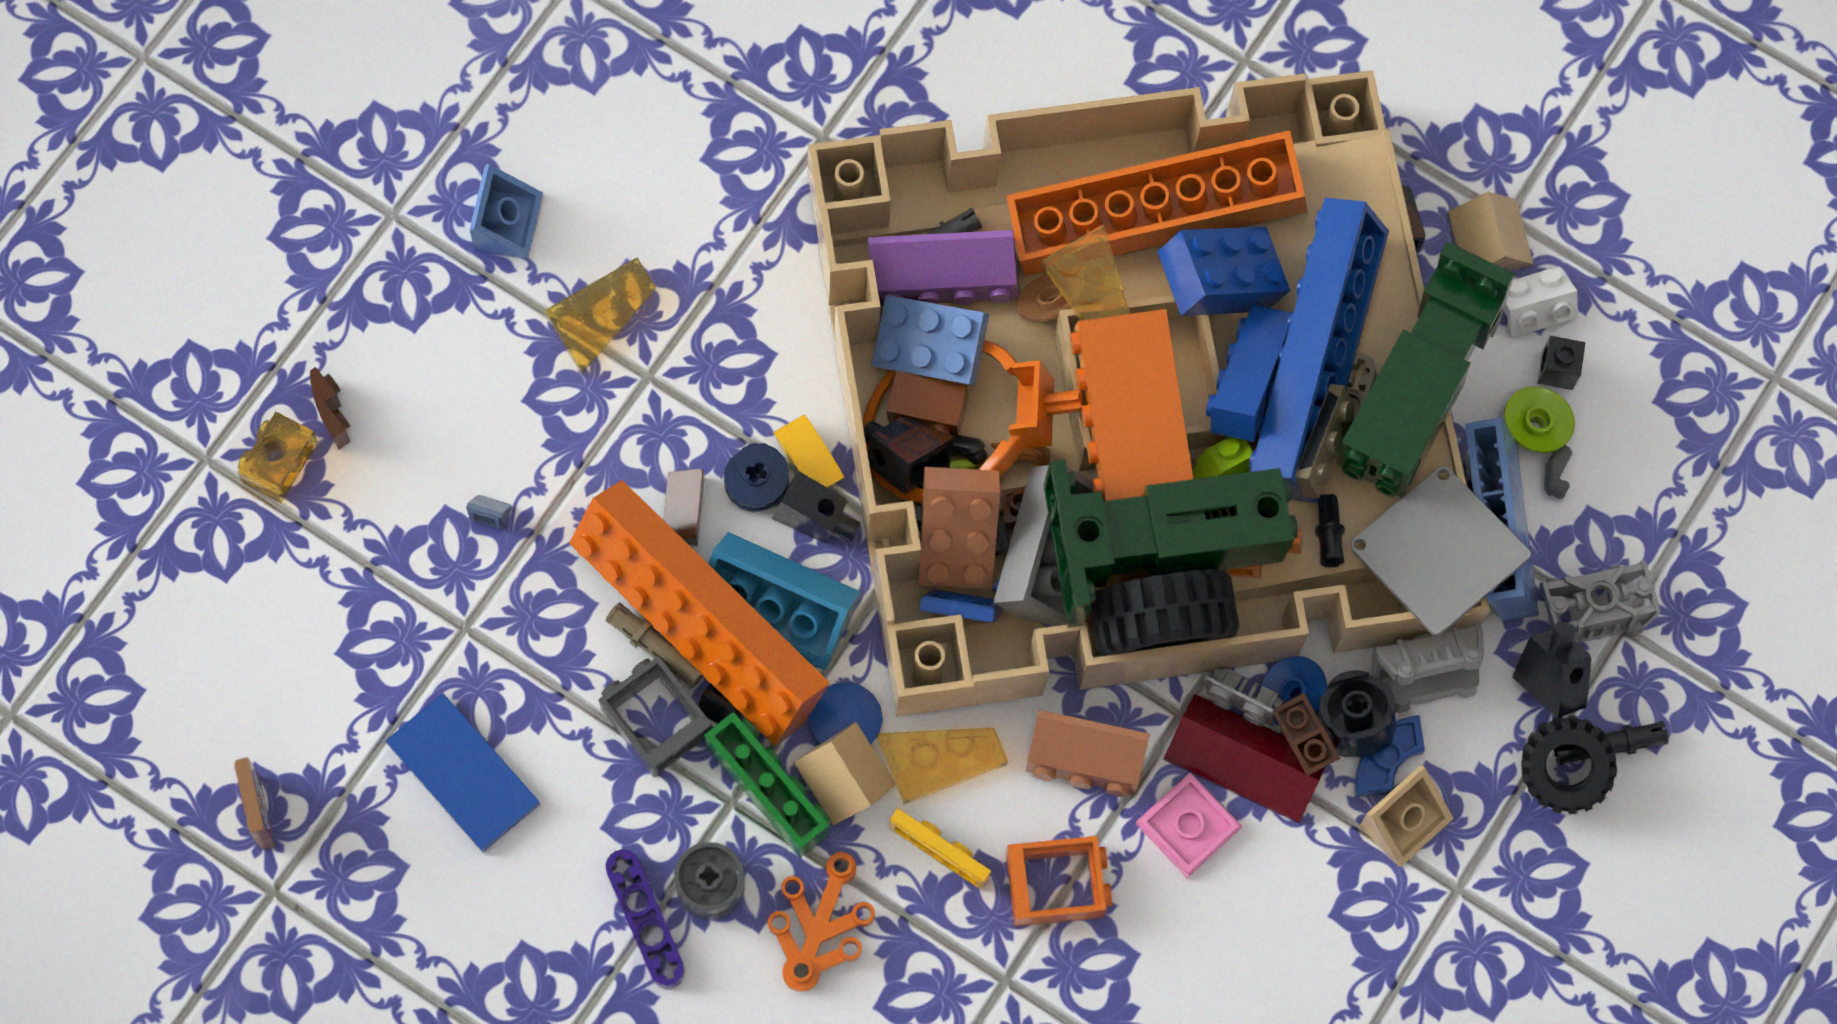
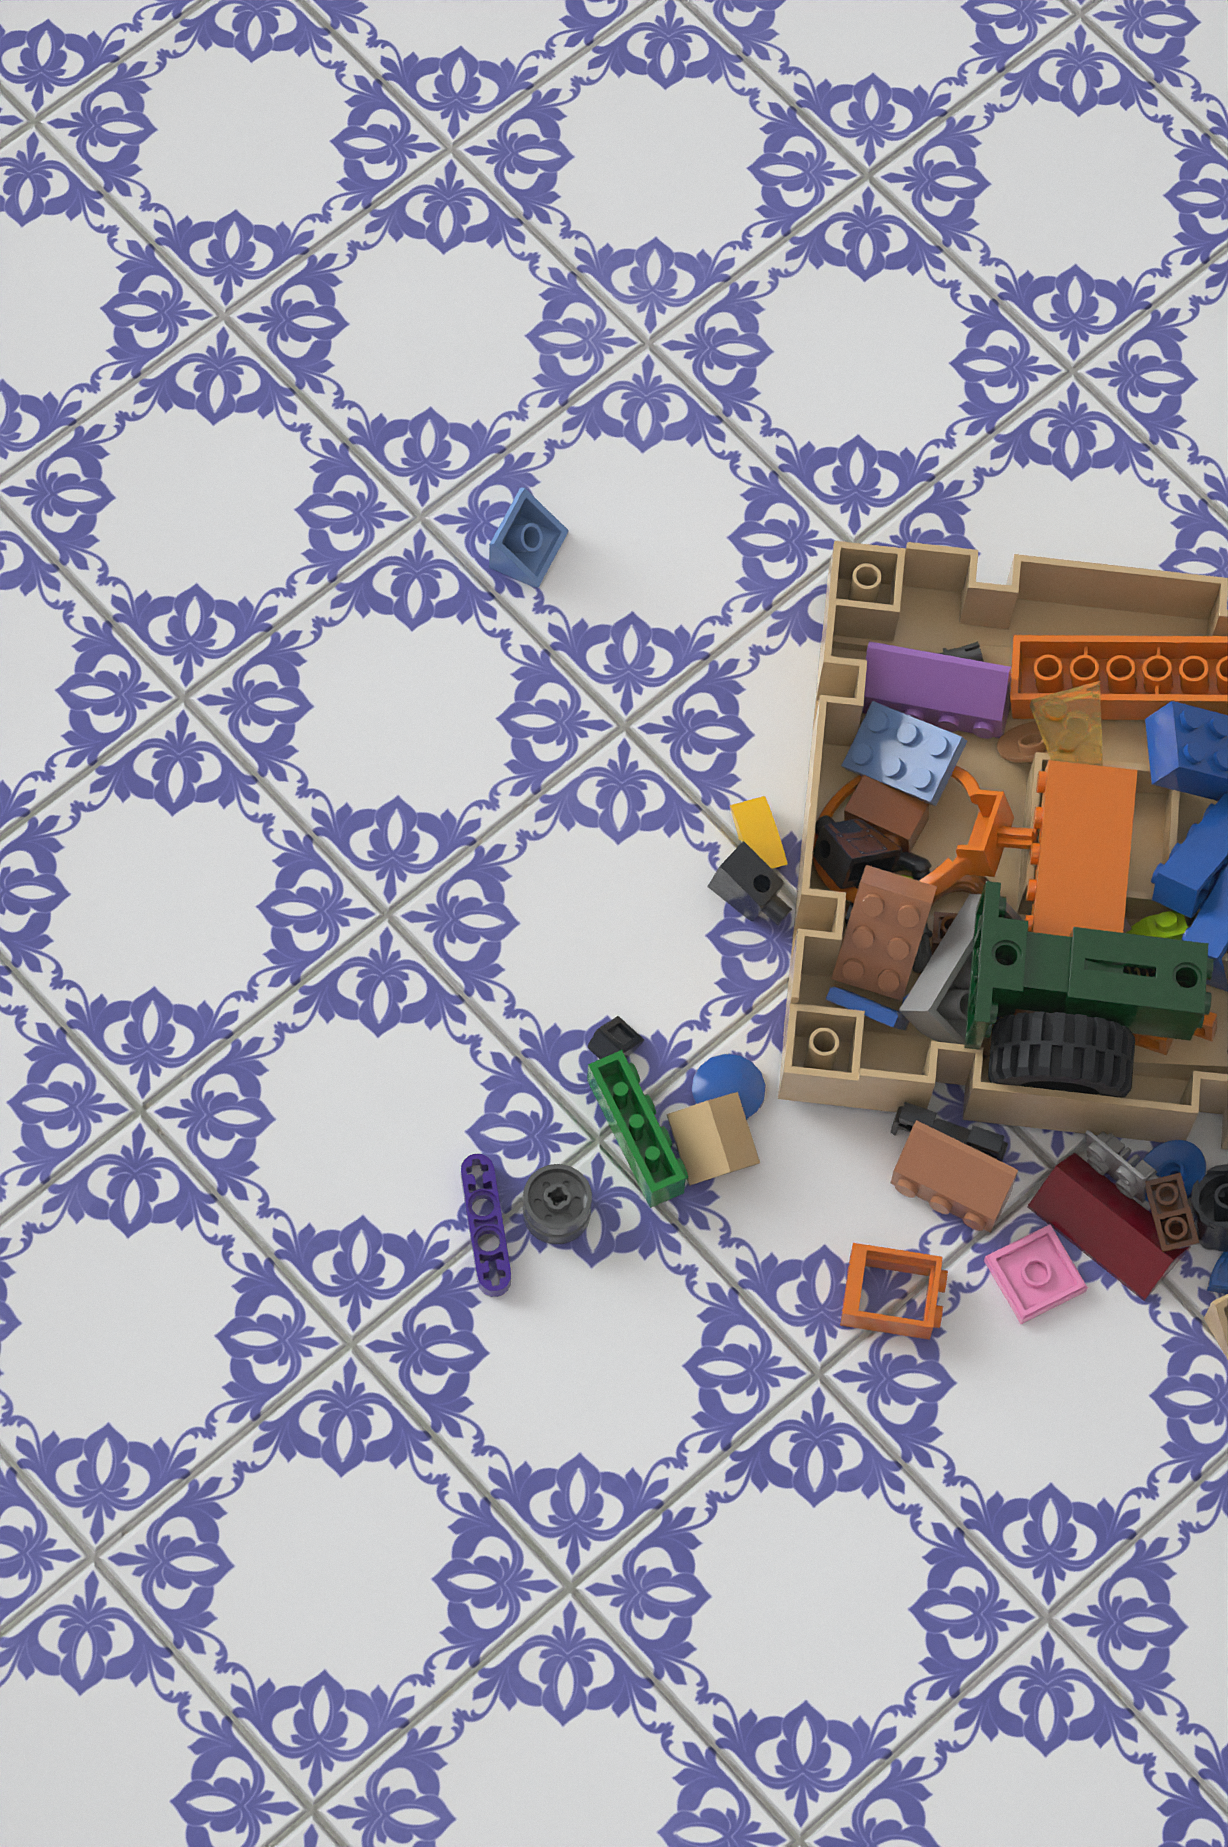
camera: 15 degrees right, 5 degrees down
(254, 803) = (144, 1020): medium nougat tile -> none
(277, 477) = (243, 728): clear yellow brick -> none
(327, 402) = (312, 674): reddish brown slope -> none
(462, 772) = (348, 1045): blue tile -> none
(488, 511) = (437, 812): sand blue slope -> none
(599, 311) = (593, 652): clear yellow wing -> none
(650, 640) = (556, 964): dark tan pin -> none
(679, 743) = (557, 1071): dark grey window -> none
(684, 503) = (625, 854): slope -> none
(698, 612) = (613, 951): orange brick -> none
(746, 464) = (696, 830): dark blue piece -> none
(792, 598) = (690, 961): dark azure slope -> none
(817, 927) = (650, 1276): orange plant -> none
(928, 839) = (778, 1221): yellow plate -> none
(939, 758) = (809, 1150): clear yellow wing -> none
(1097, 710) = (977, 1137): none -> black piece

